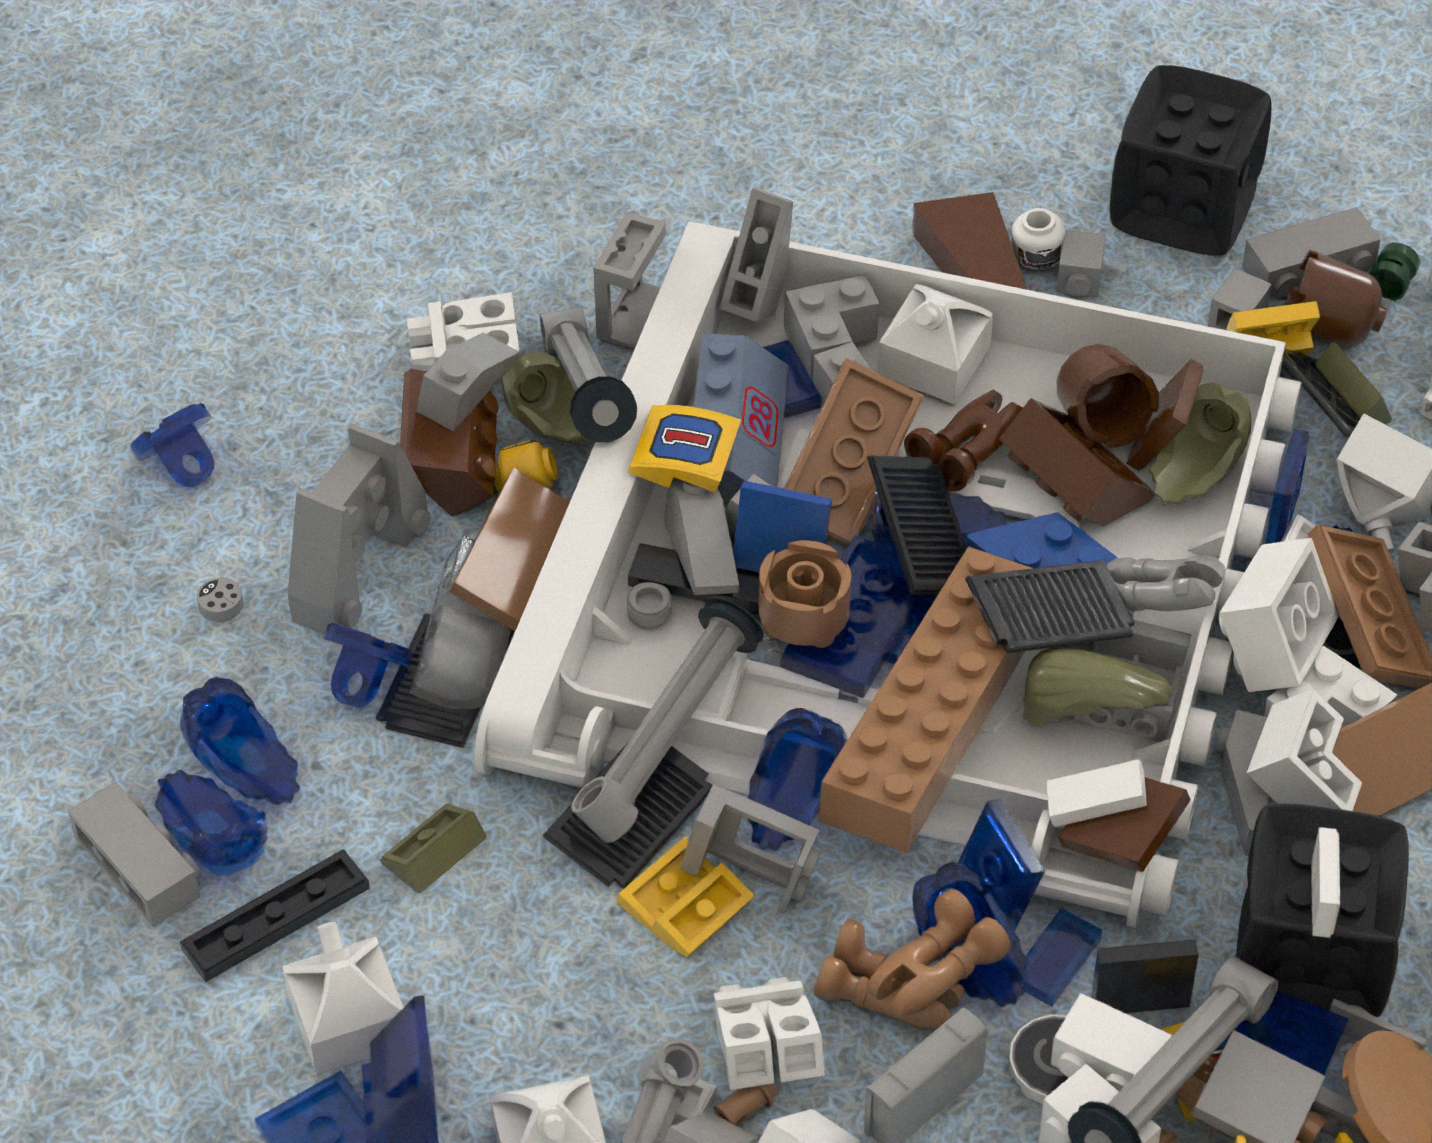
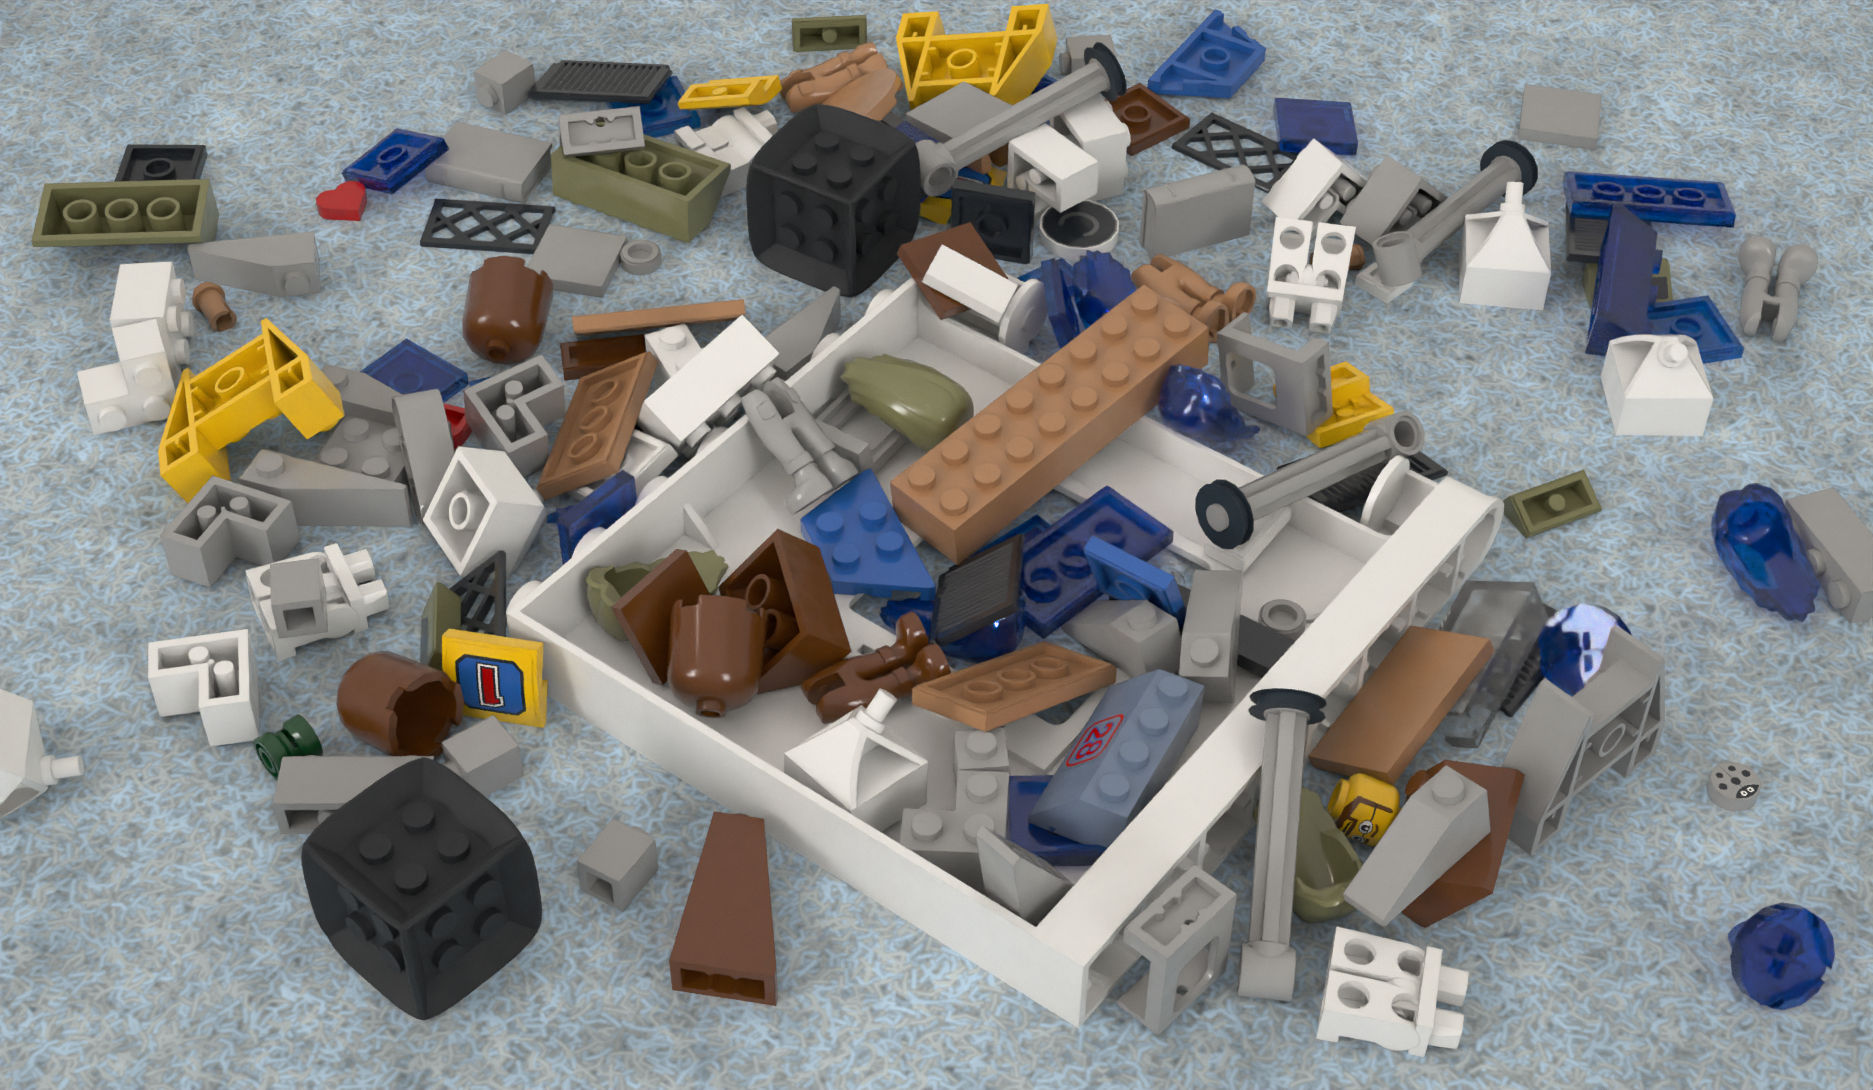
camera: 160 degrees left, 5 degrees down
(237, 742) = (1729, 617): clear blue hair -> none
(274, 915) = (1700, 489): black tile -> none
(685, 446) = (1205, 676): slope -> none
(804, 594) = (1141, 521): medium nougat brick -> none
(955, 920) = (1154, 265): medium nougat piece -> none
(1038, 238) = (651, 896): white head -> none
(1051, 606) = (912, 439): black window -> none
(1297, 758) = (774, 290): white brick -> none
(1325, 882) = (850, 123): white tile -> none

